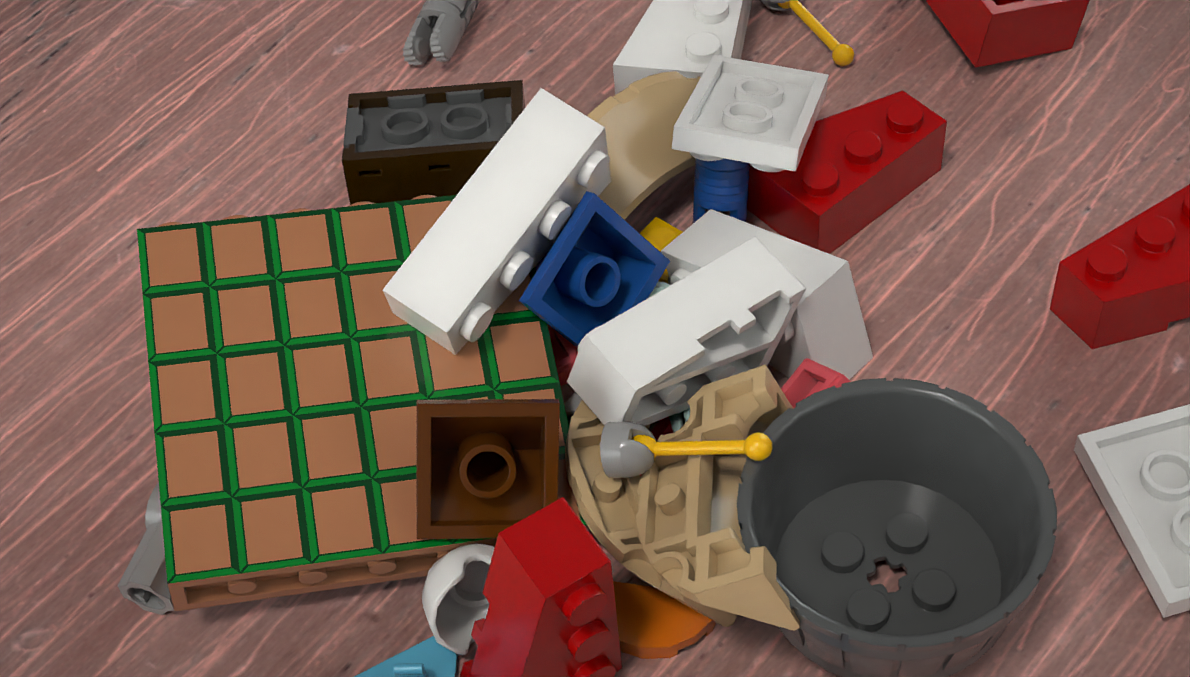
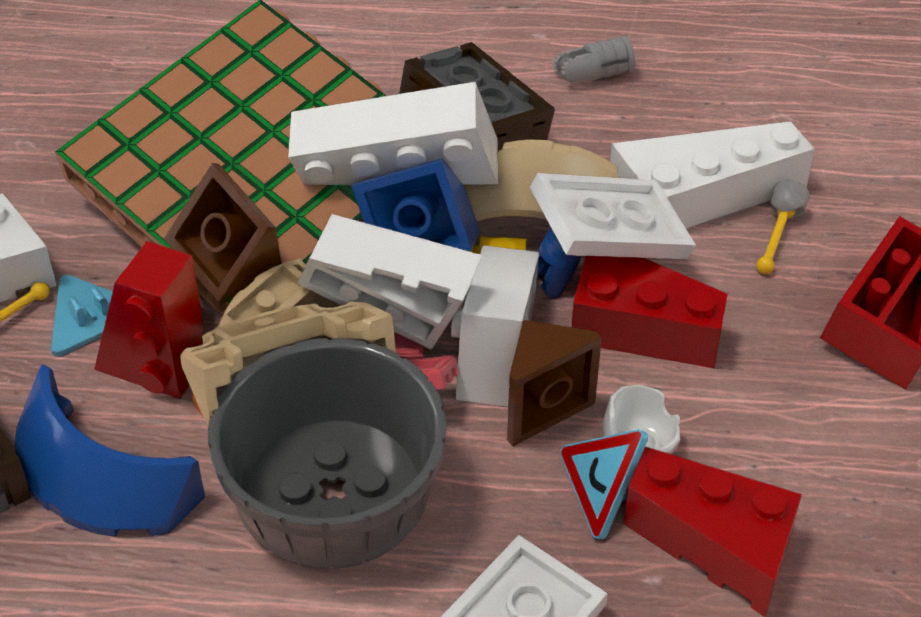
camera: 50 degrees right, 5 degrees down
(631, 448) = (289, 296): hinge -> none
(898, 295) = (550, 377): none -> reddish brown slope
(1002, 263) = (642, 409): none -> white hair
(1042, 324) = (601, 474): none -> piece

